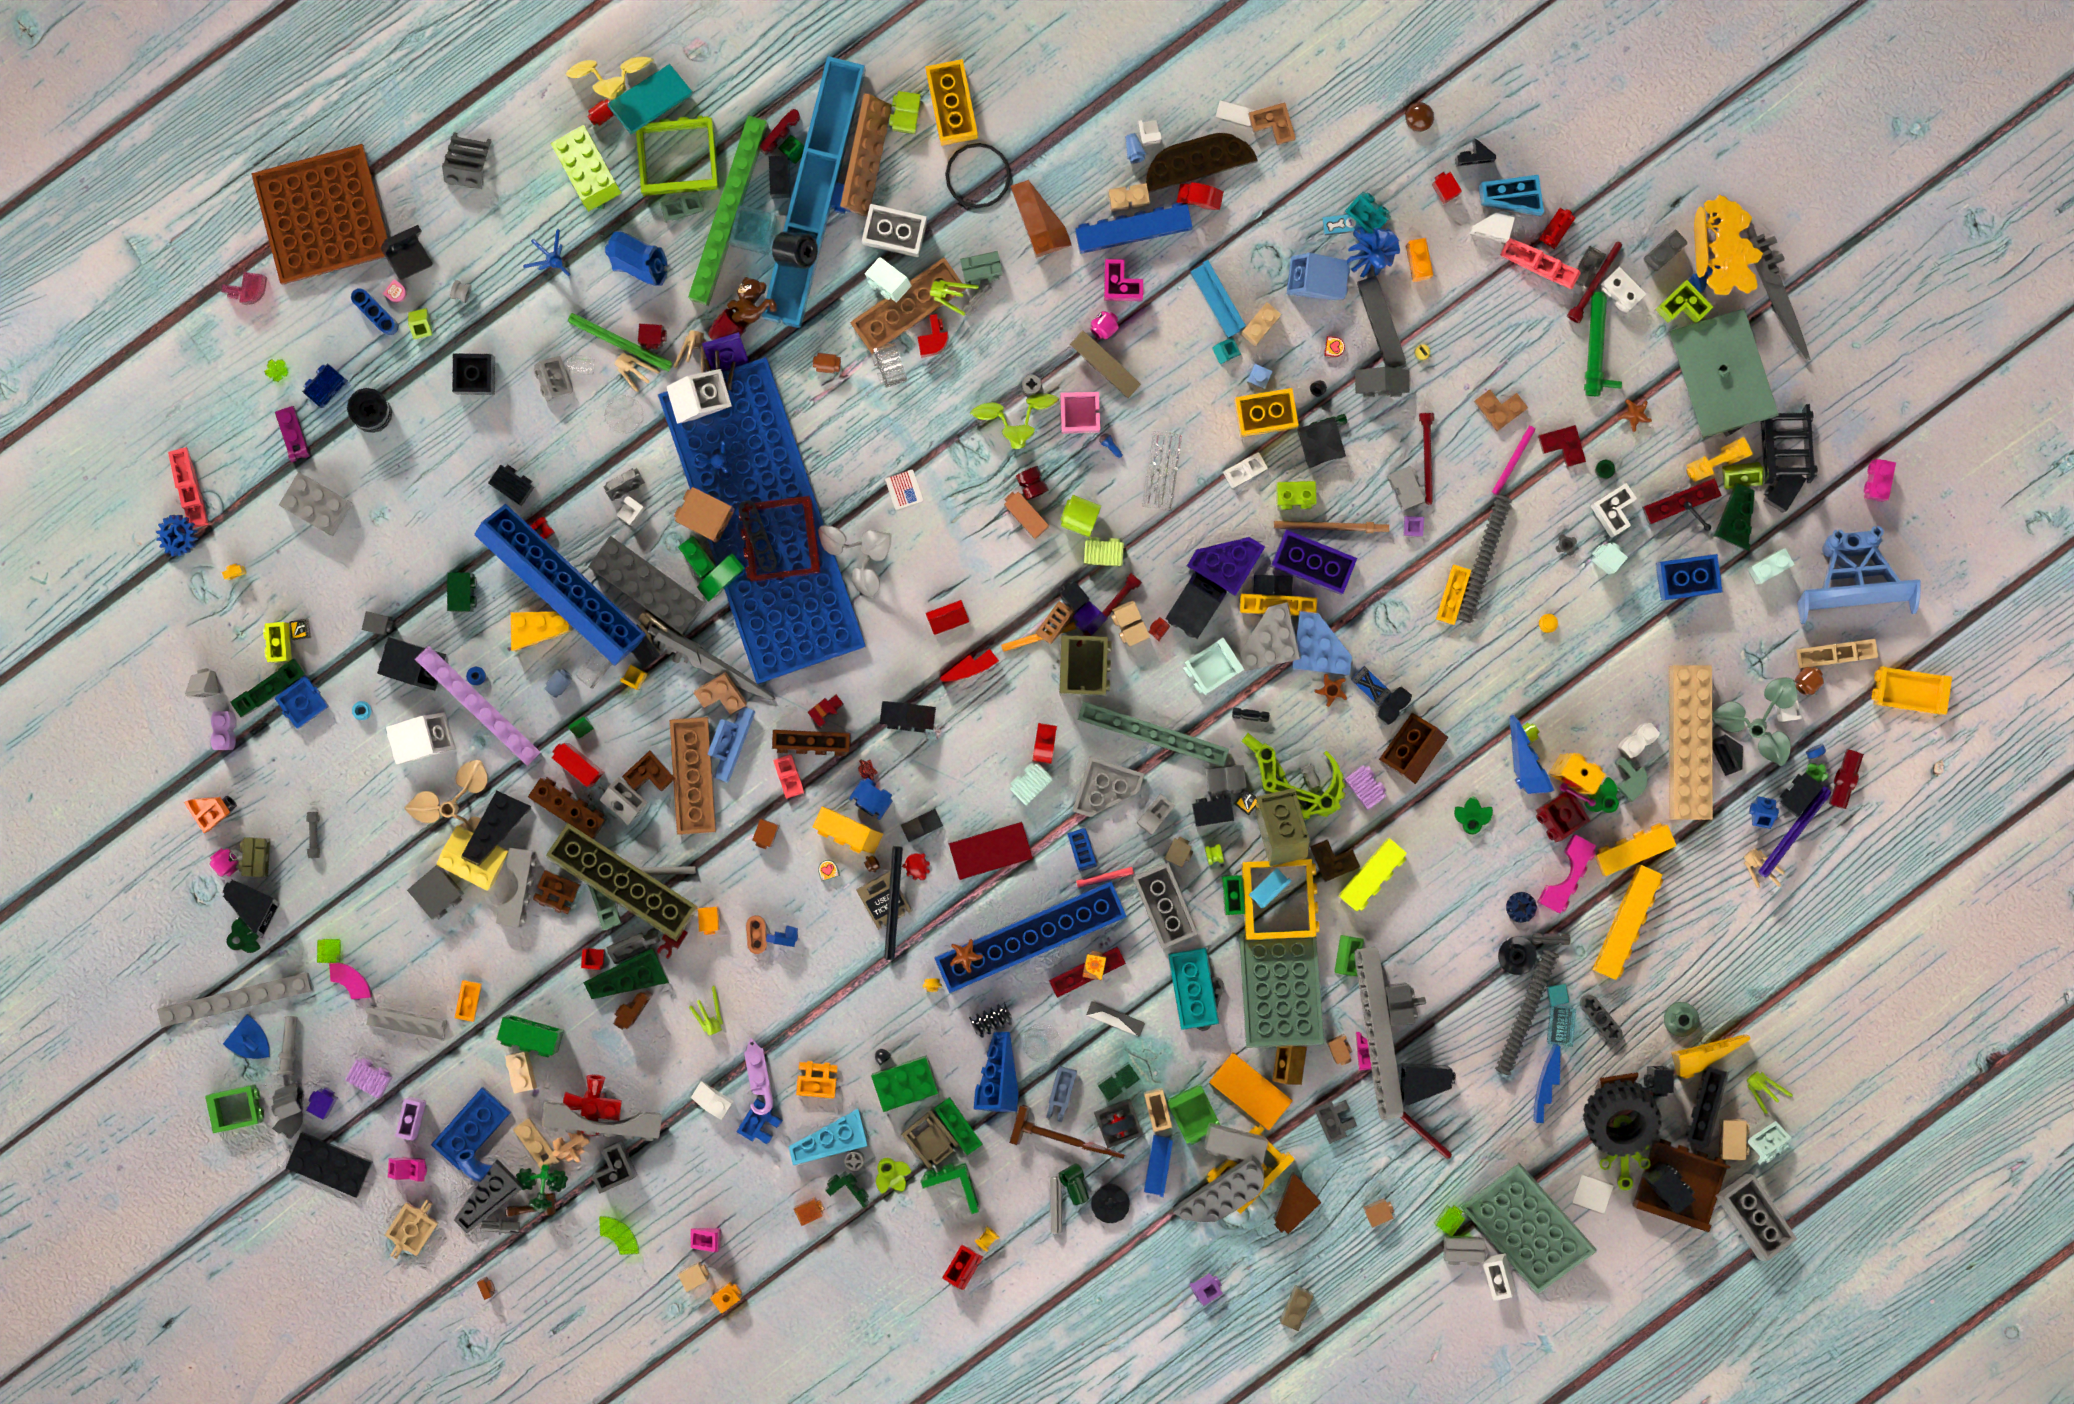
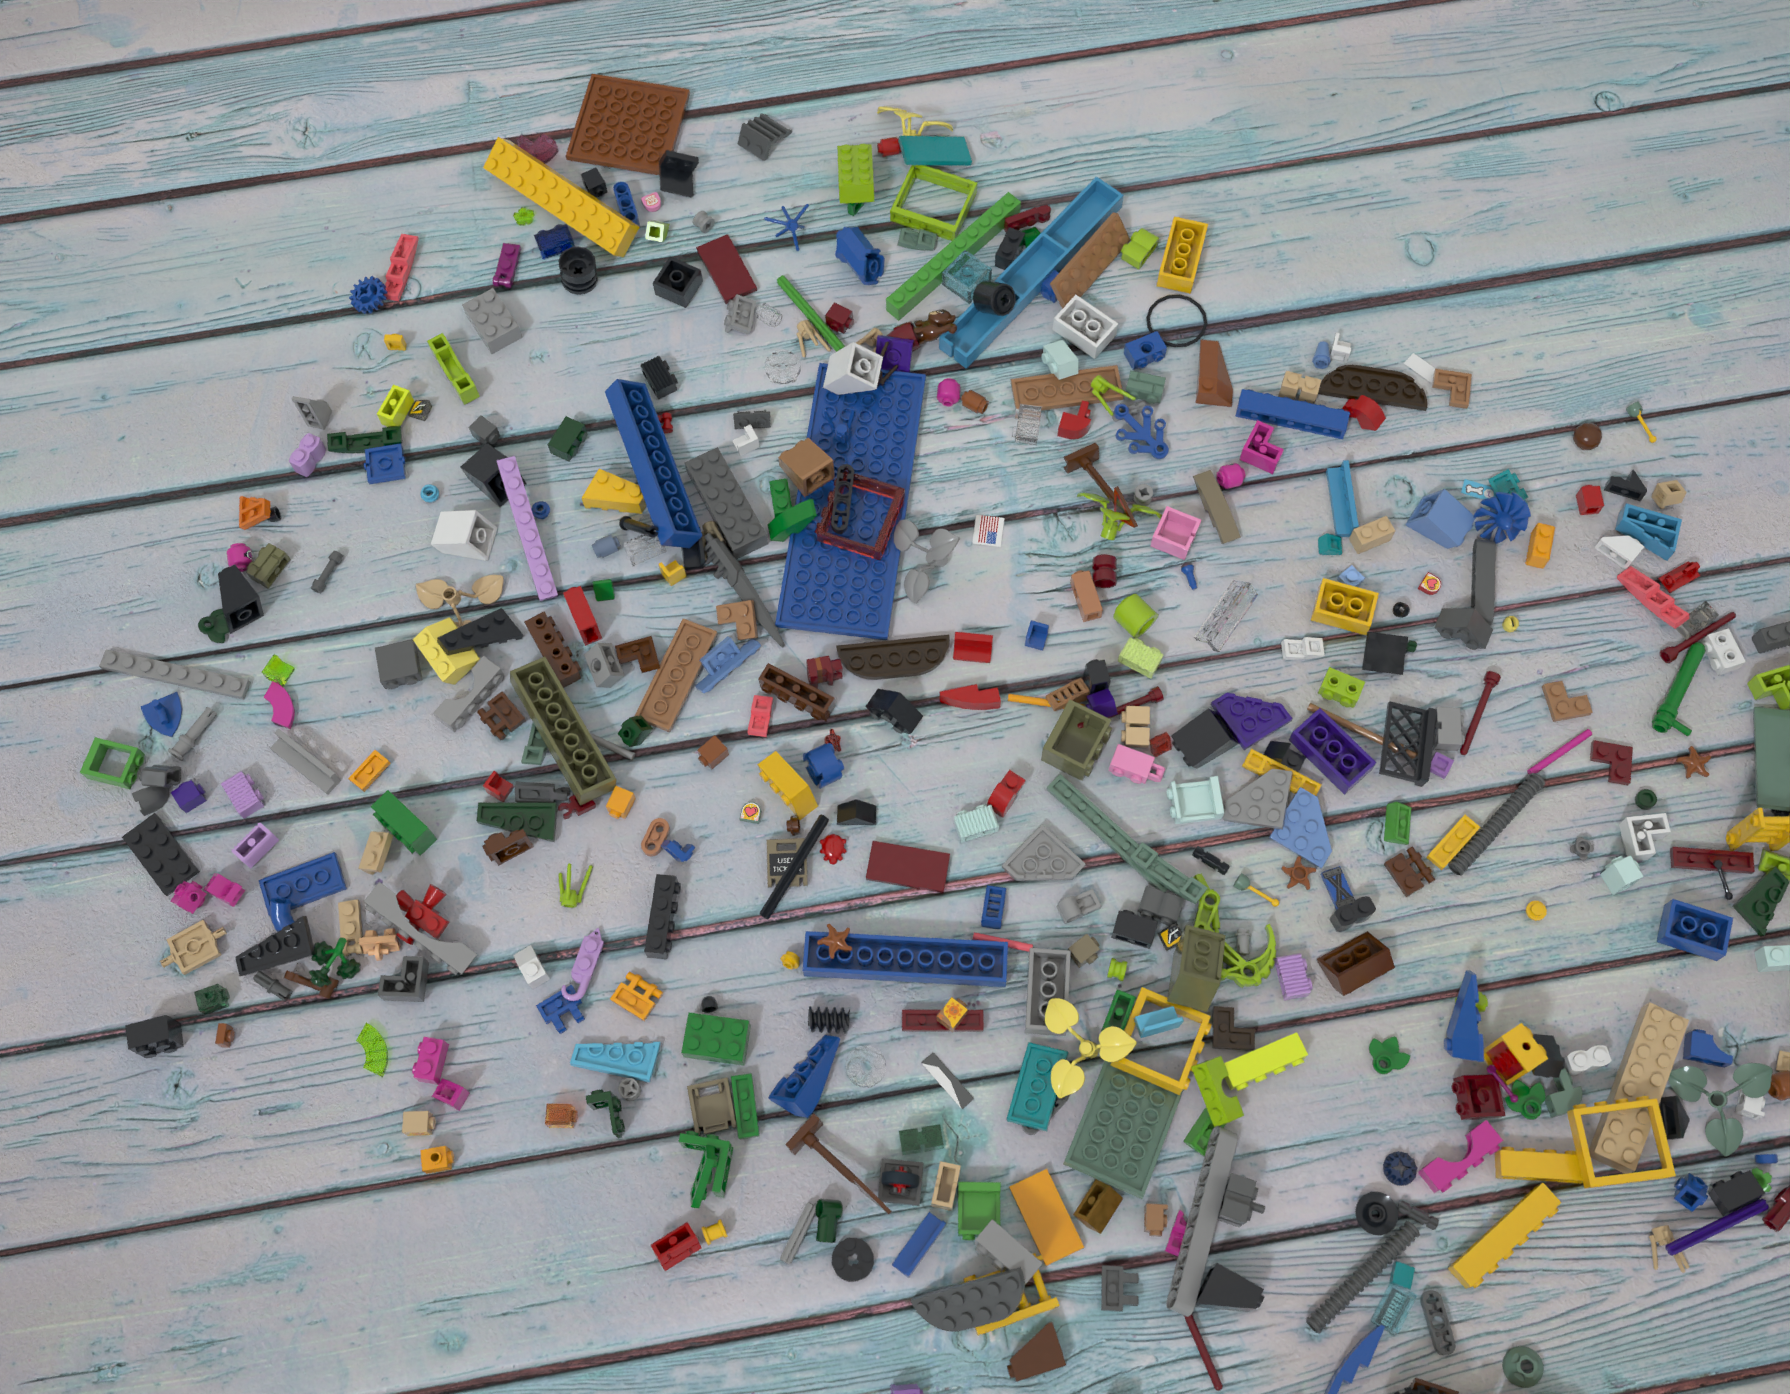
camera: 25 degrees right, 20 degrees down
(304, 336) = (561, 197): none -> yellow brick
(309, 574) = (453, 369): none -> lime arch
(327, 301) = (594, 182): none -> black brick
(380, 1190) = (189, 896): none -> dark pink brick
(434, 1316) = (154, 1036): none -> black brick
(456, 1263) = (212, 999): none -> clear green brick
(511, 331) = (726, 268): none -> dark red tile
(565, 650) = (627, 523): none -> black pin
(674, 1221) = (430, 1061): none -> dark pink brick
(685, 848) = (634, 731): none -> dark green brick
(797, 365) = (948, 391): none -> dark pink head
(801, 1002) = (661, 916): none -> black brick
(881, 661) = (894, 657): none -> dark brown plate
(891, 1178) = (657, 1125): lime plate -> none
(956, 1203) = (703, 1176): none -> green plate
(958, 376) = (1084, 459): none -> reddish brown piece
(965, 216) = (1151, 343): none -> blue brick
(1000, 577) = (1036, 635): none -> blue panel
(1002, 319) = (1142, 433): none -> blue plant
(1061, 1091) = (860, 1122): sand blue hinge -> none
(1145, 660) = (1135, 765): none -> bright pink brick
(1220, 750) = (1168, 875): none -> sand green slope
(1241, 927) = (1113, 1046): none -> light yellow plant
(1288, 722) = (1243, 883): none -> hinge
(1333, 912) = (1209, 1079): none -> lime arch
(1392, 516) = (1423, 748): none -> black fence
(1398, 599) = (1397, 823): none -> bright green slope
(1423, 645) = (1405, 876): none -> reddish brown plate
(1455, 66) = (1635, 410): none -> hinge
(1517, 145) = (1668, 493): none -> tan brick
(1602, 752) = (1554, 1063): none -> black brick
(1719, 824) = (1582, 1150): none -> yellow window
(1730, 681) = (1702, 1049): none -> blue arch

